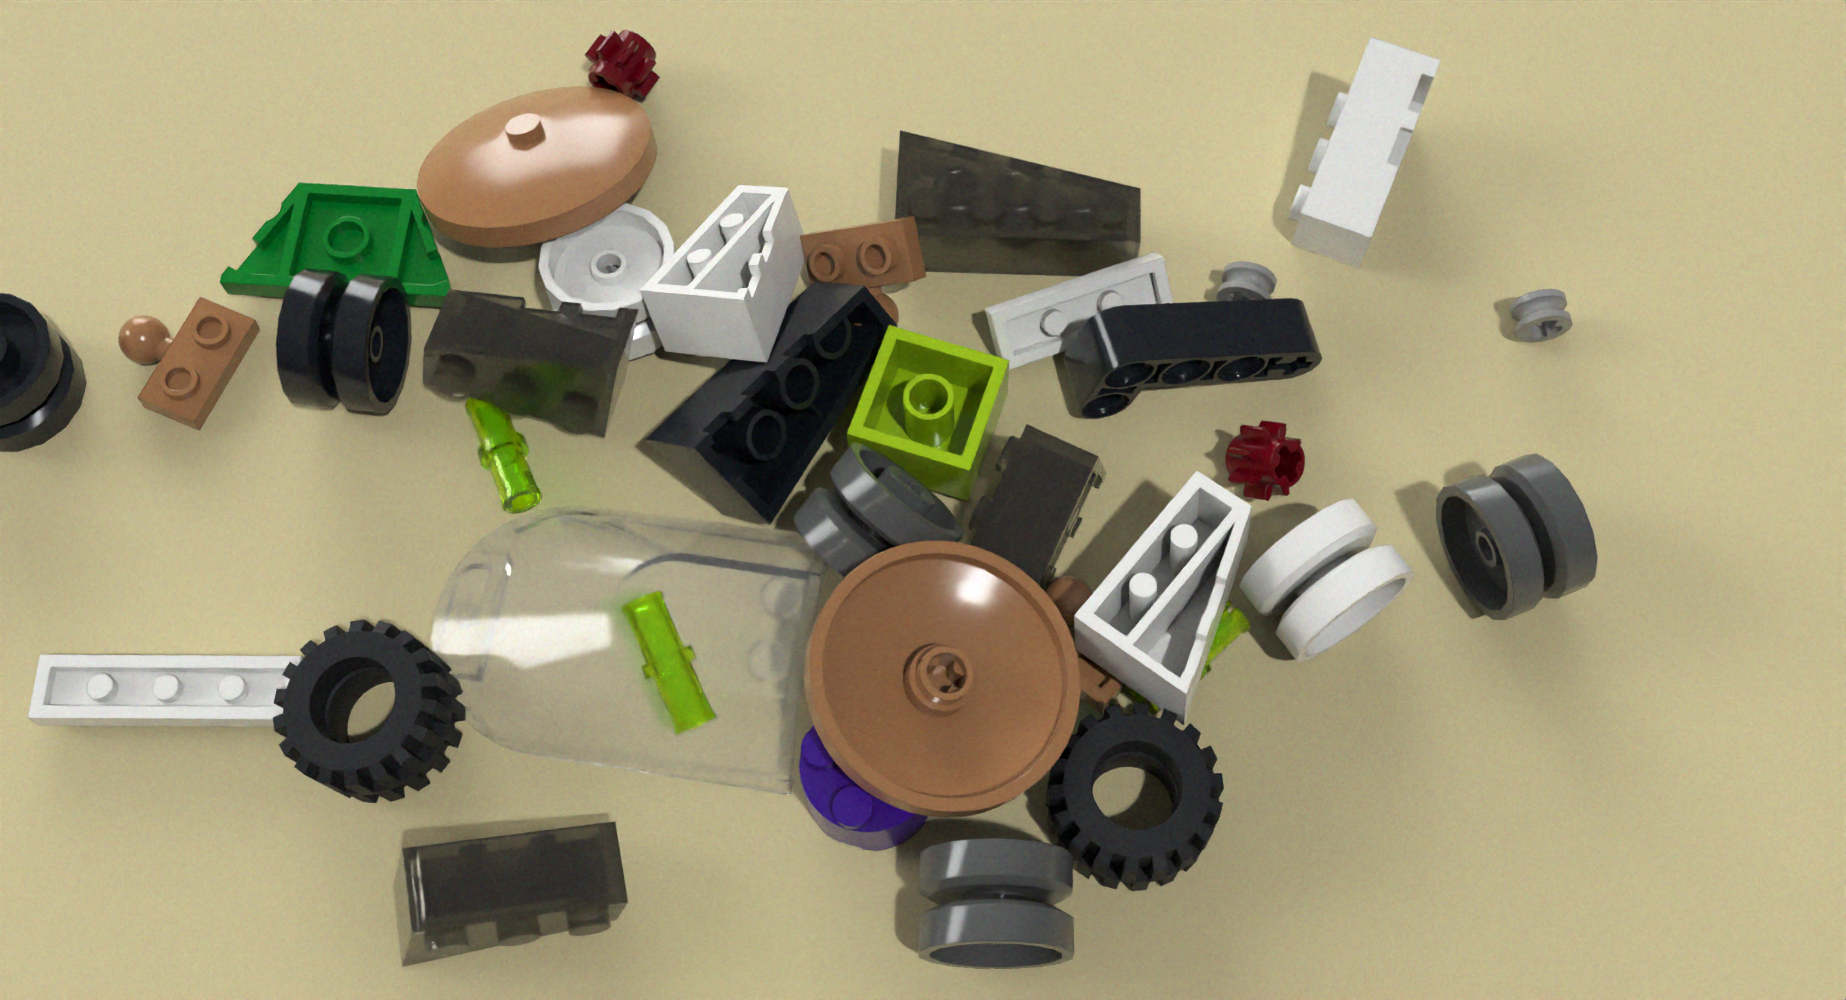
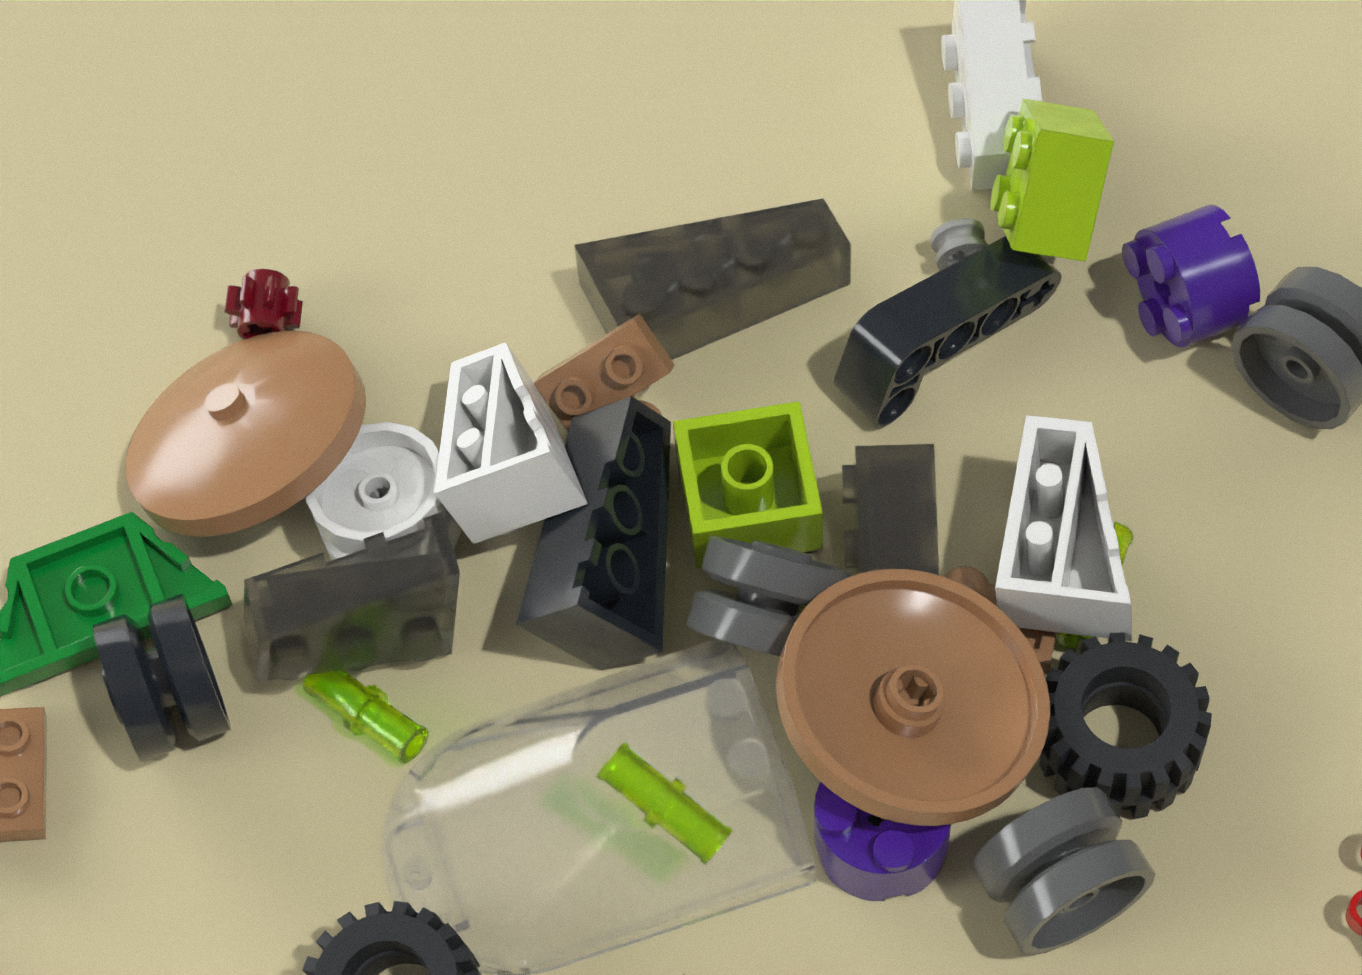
camera: 25 degrees left, 5 degrees down
(1053, 317) = (815, 339): white plate -> none
(1265, 460) = (1064, 385): dark red gear -> none
(1326, 579) = (1171, 455): white wheel -> none
(1362, 257) = (1052, 179): none -> lime brick
(1438, 415) = (1192, 276): none -> dark purple brick
(1541, 315) = (1225, 152): light grey bush -> none

